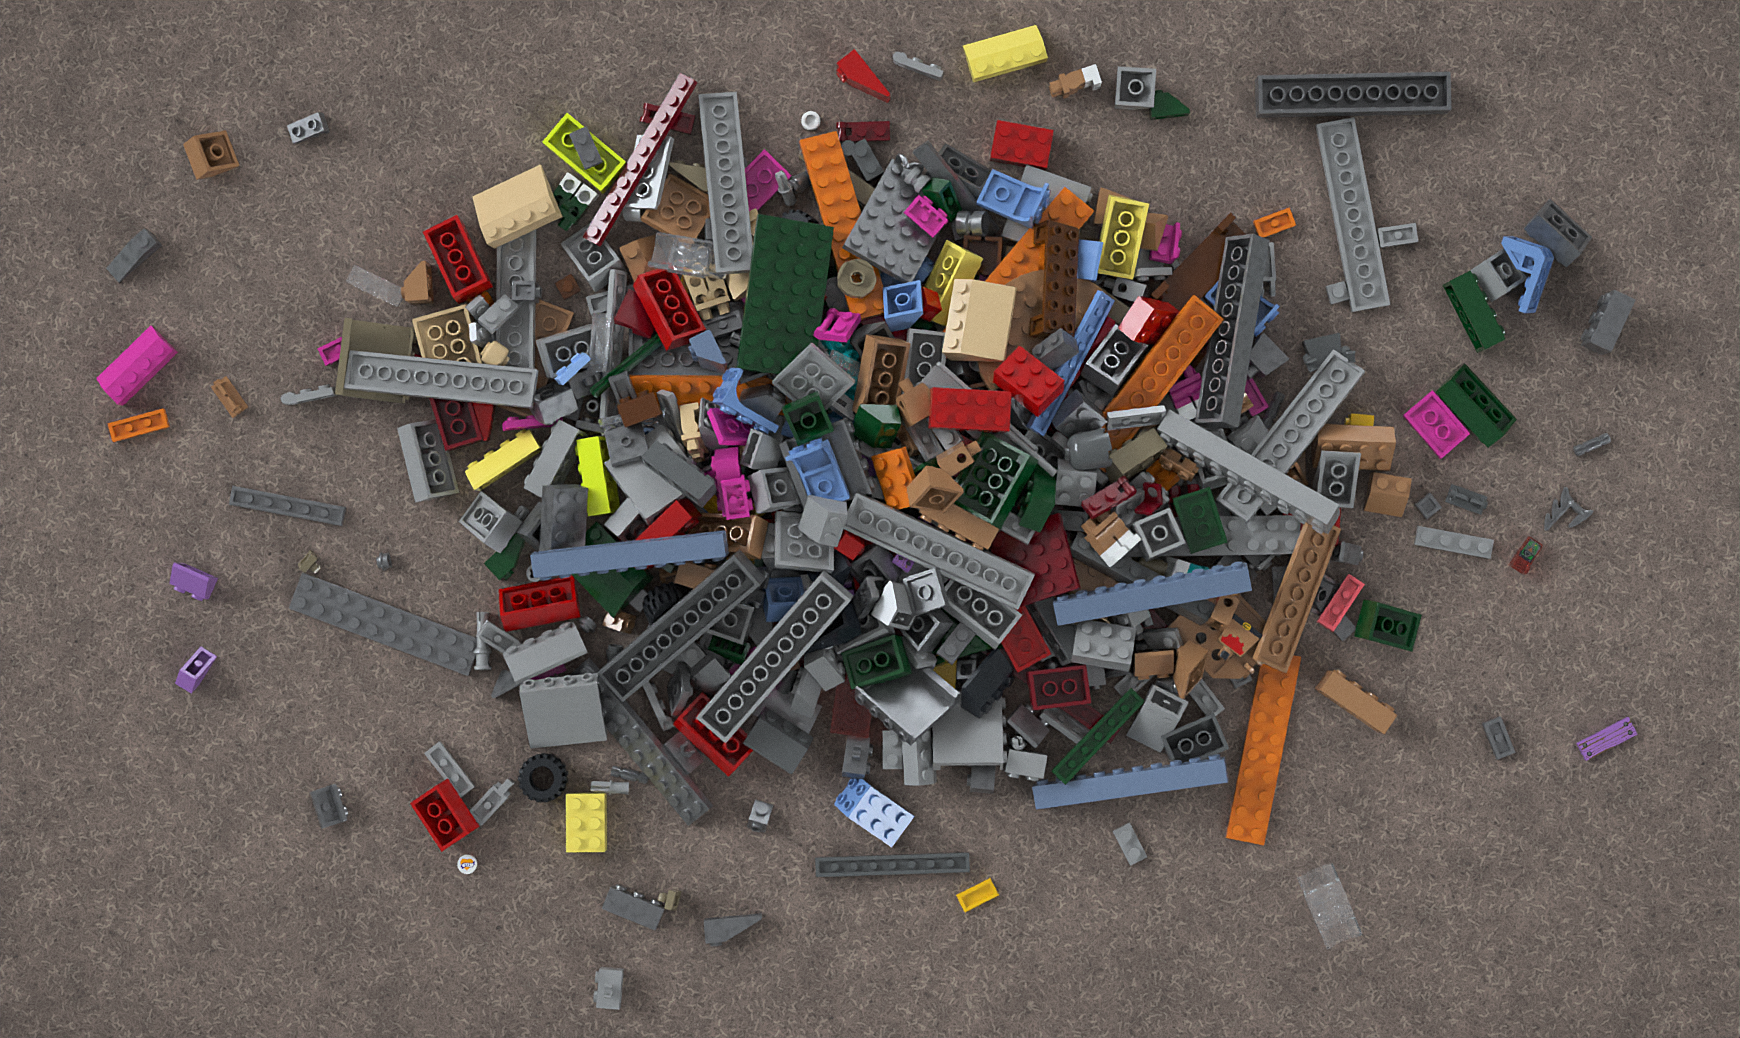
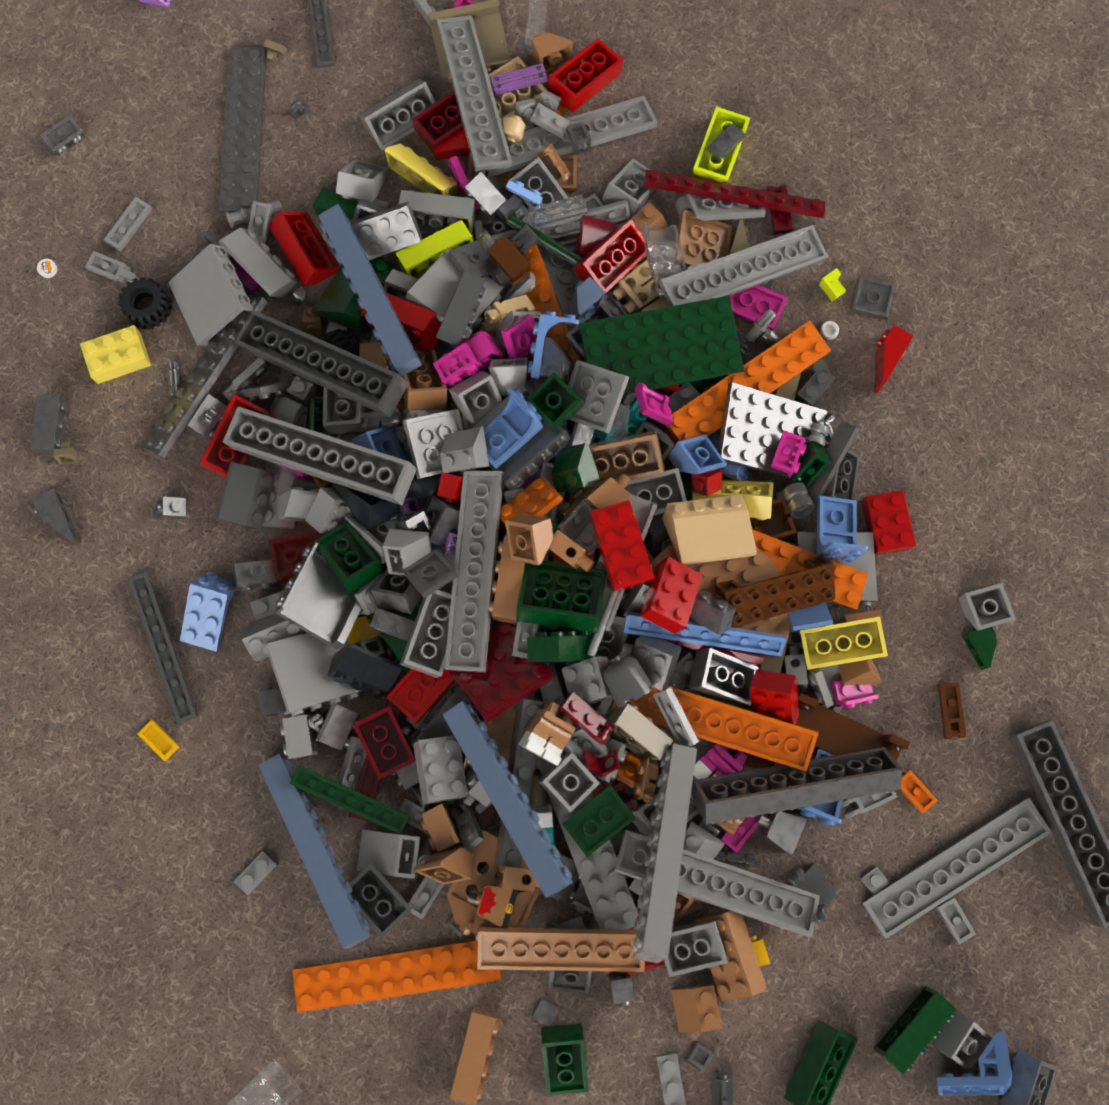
camera: 65 degrees right, 10 degrees down
(441, 328) = (519, 78): none -> medium lavender tile
(444, 814) = (83, 229): red brick -> none
(516, 207) = (648, 107): tan slope -> none
(545, 326) = (554, 163): none -> medium nougat hinge
(568, 286) = (597, 177): reddish brown plate -> none
(573, 200) = (673, 153): hips -> none
(610, 787) = (155, 365): light grey axle -> none
(767, 99) = (831, 285): none -> neon yellow panel
(793, 65) = (872, 297): none -> flat silver plate
(846, 283) = (696, 413): dark tan plate -> none
(870, 131) = (842, 383): dark red plate -> none
(916, 65) = (919, 405): light grey hinge -> none
(1005, 53) = (964, 479): light yellow slope -> none
(1074, 81) = (969, 550): medium nougat hips -> none
(1214, 159) = (951, 710): none -> reddish brown plate
(1340, 603) = (569, 1000): coral plate -> none
(1436, 424) = (785, 1033): dark pink plate -> none

